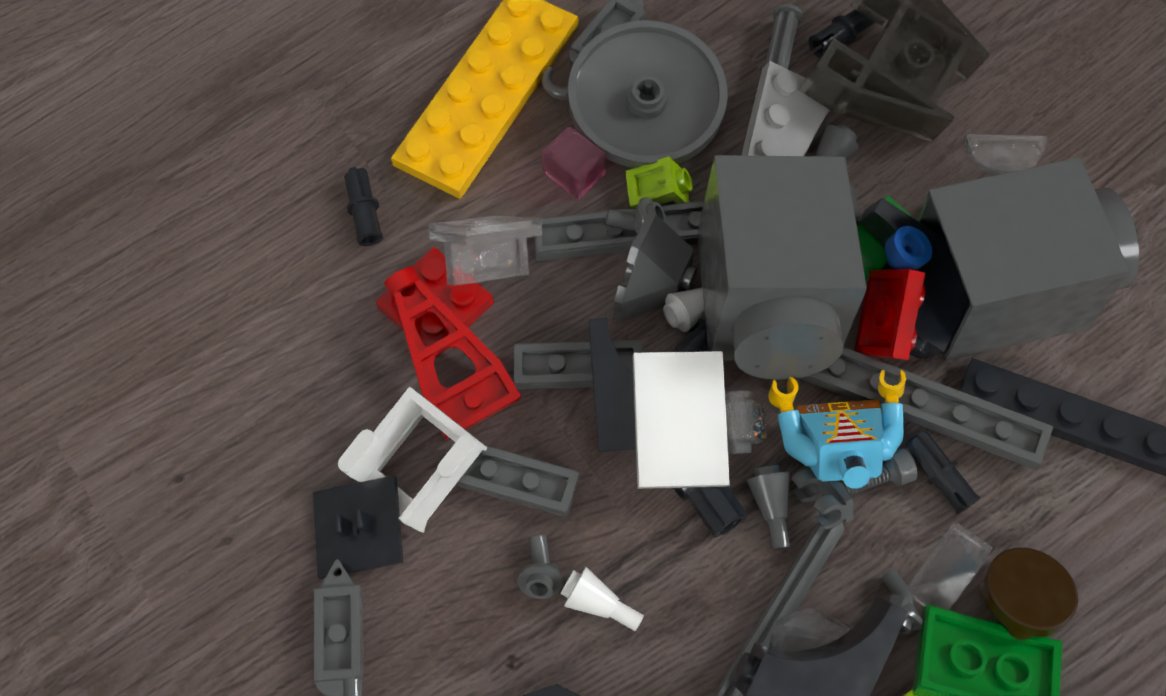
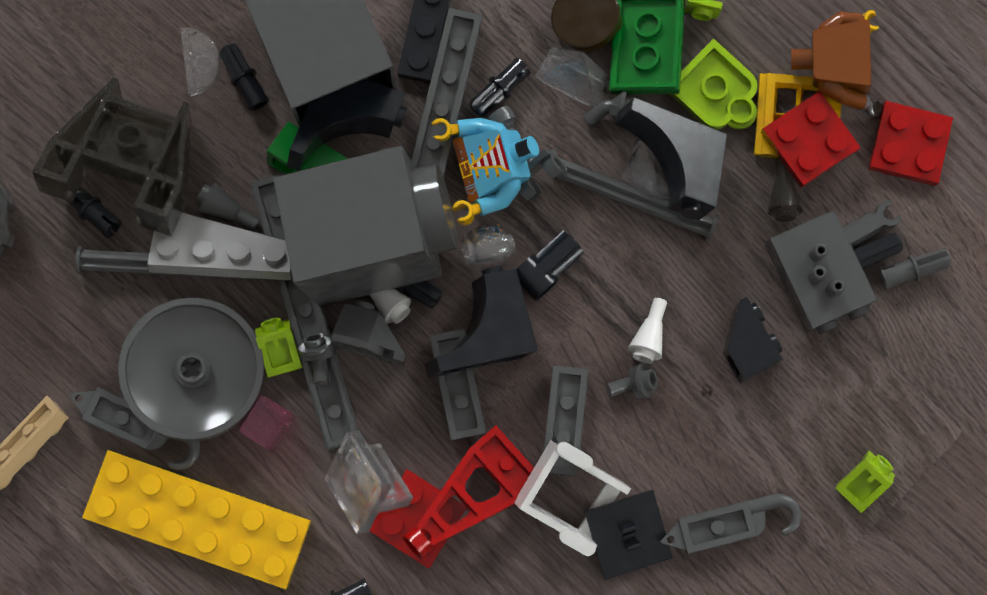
camera: 105 degrees left, 15 degrees up
(680, 420) = (506, 287): white tile -> none
(771, 494) = (540, 215): dark grey cone -> none
(890, 313) = (380, 130): red plate -> none
(908, 249) = (333, 123): blue tile -> none

